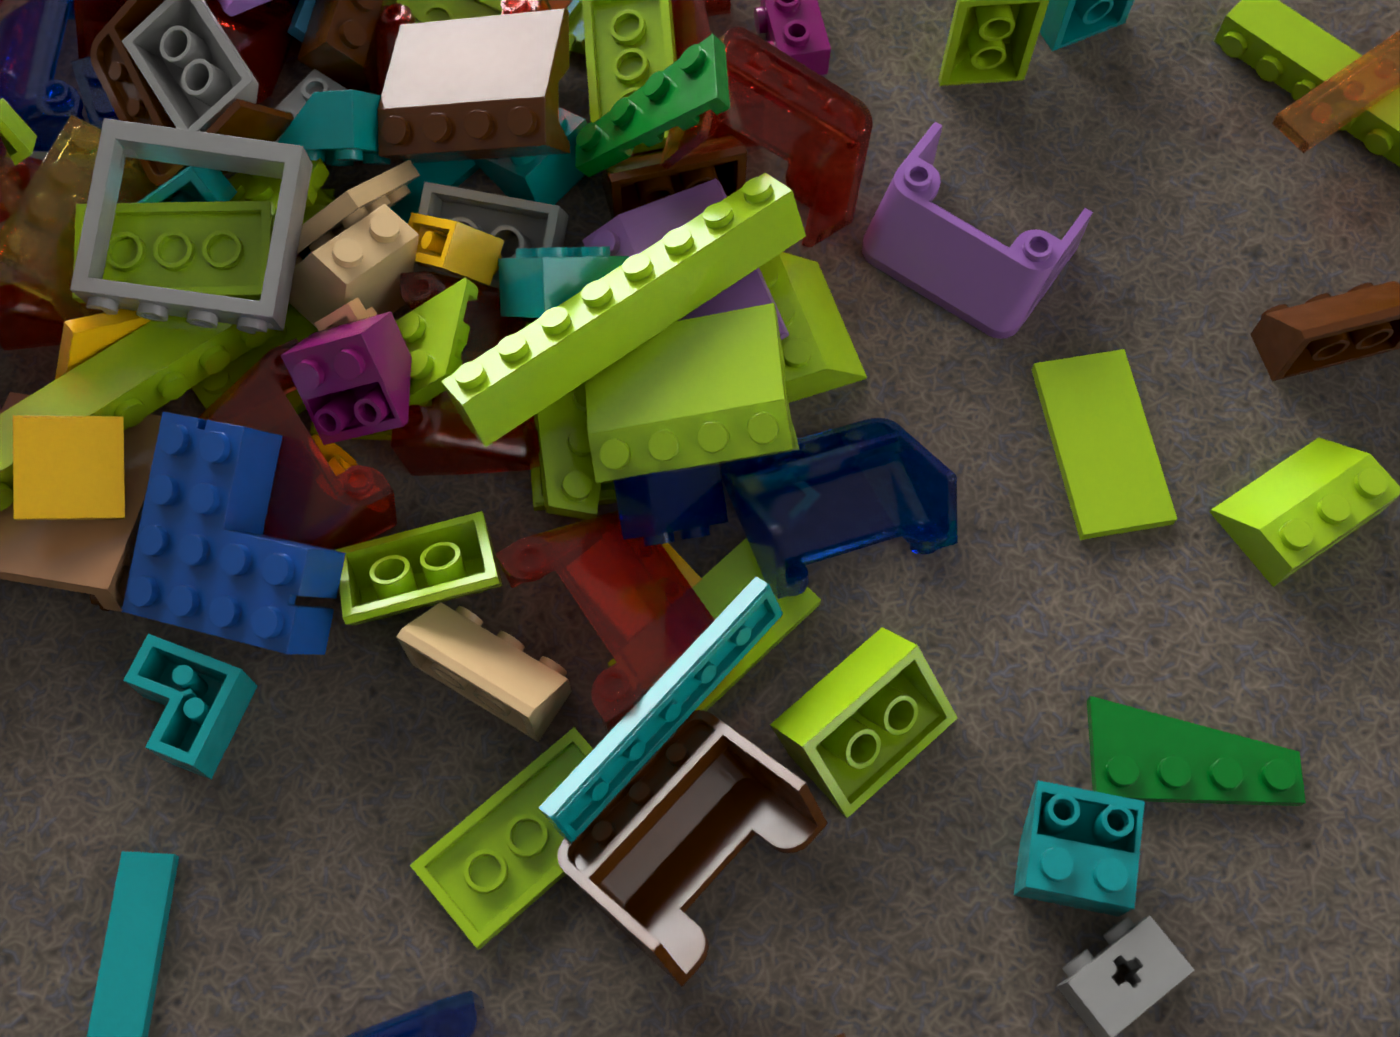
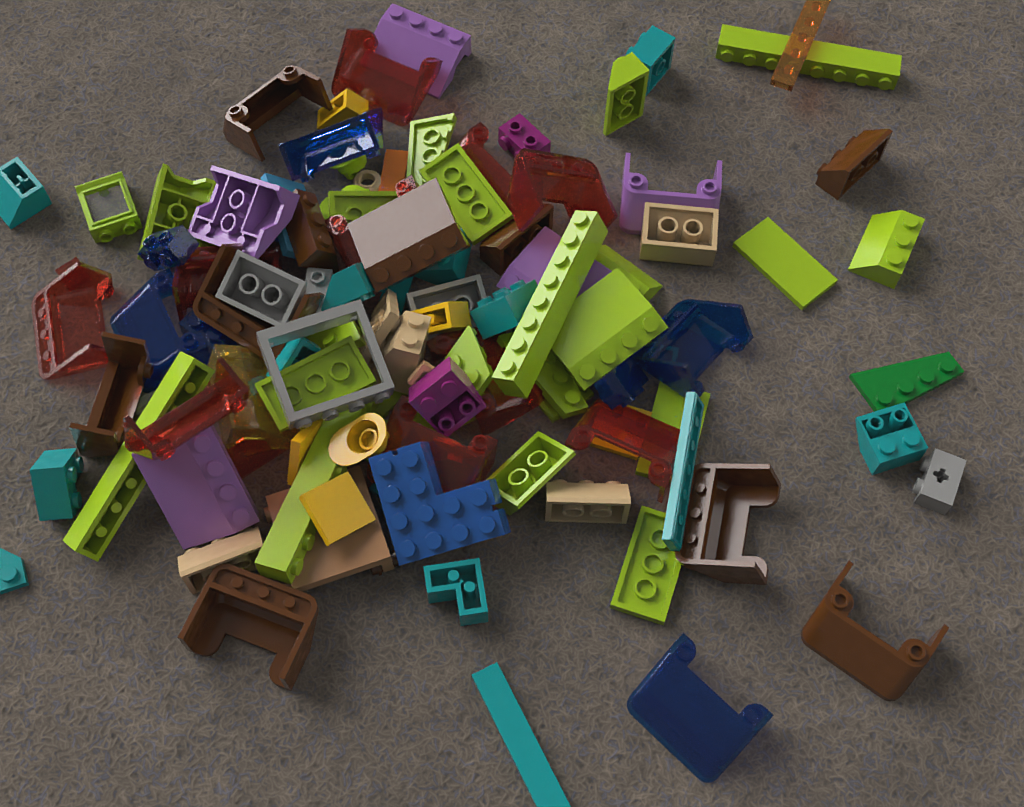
camera: 30 degrees left, 5 degrees down
(176, 378) = (359, 440): none -> yellow piece
(666, 100) = (511, 196): green wing -> none
(865, 720) = (764, 430): lime slope -> none
(942, 302) = (679, 234): none -> tan slope

